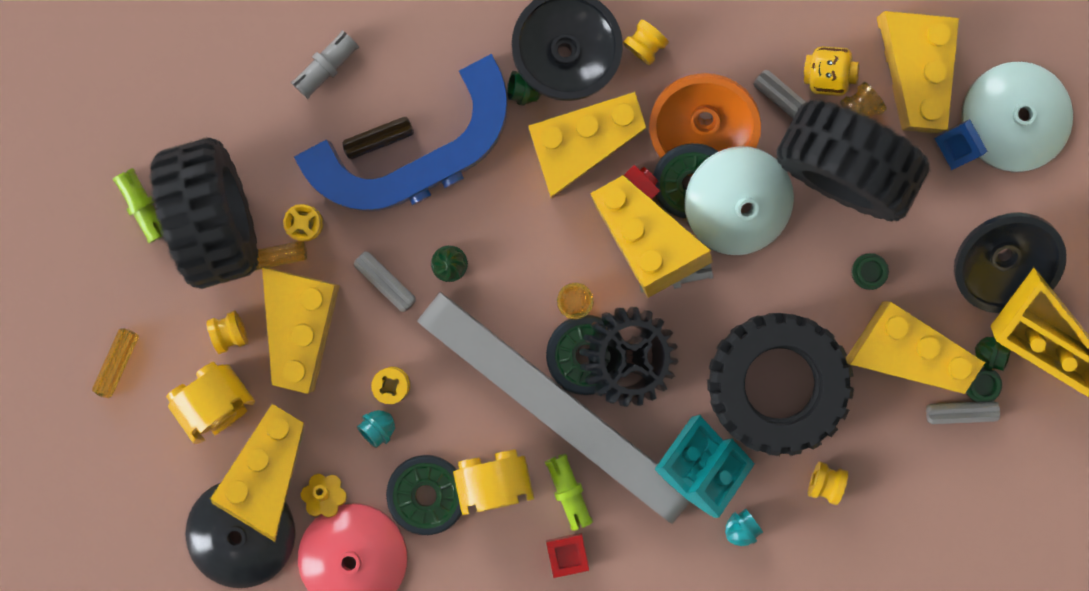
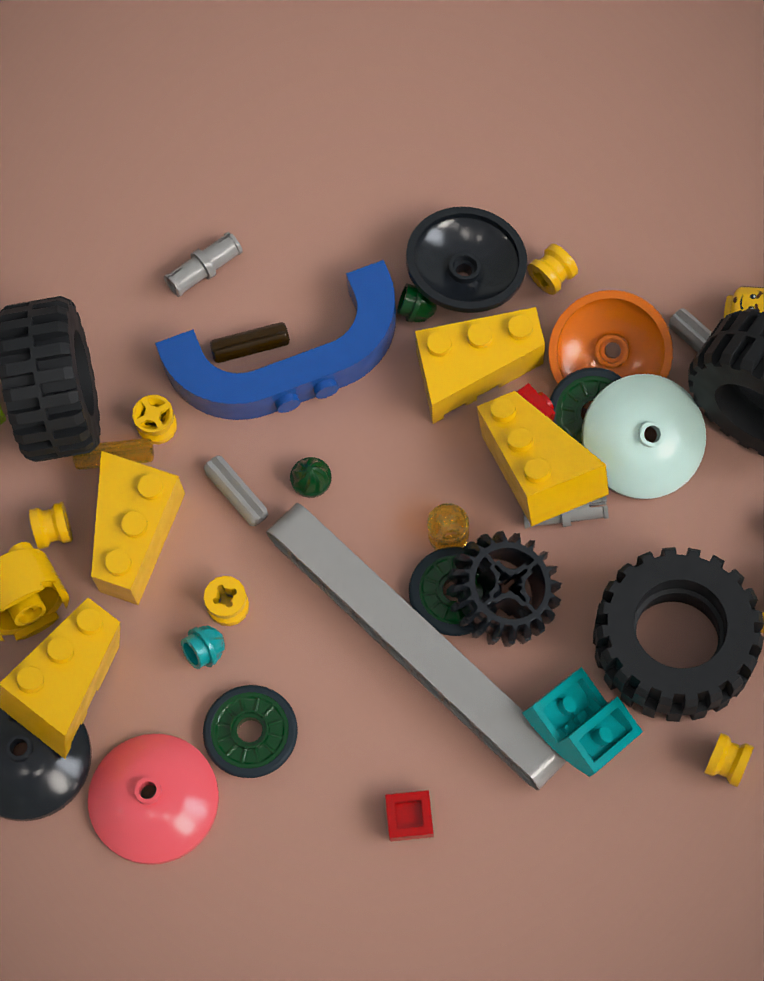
camera: 10 degrees right, 20 degrees down
(328, 502) = (130, 720): yellow plant -> none
(492, 483) = (330, 714): yellow brick -> none
(568, 492) = (418, 741): lime pin -> none
(742, 529) = (623, 804): teal plate -> none

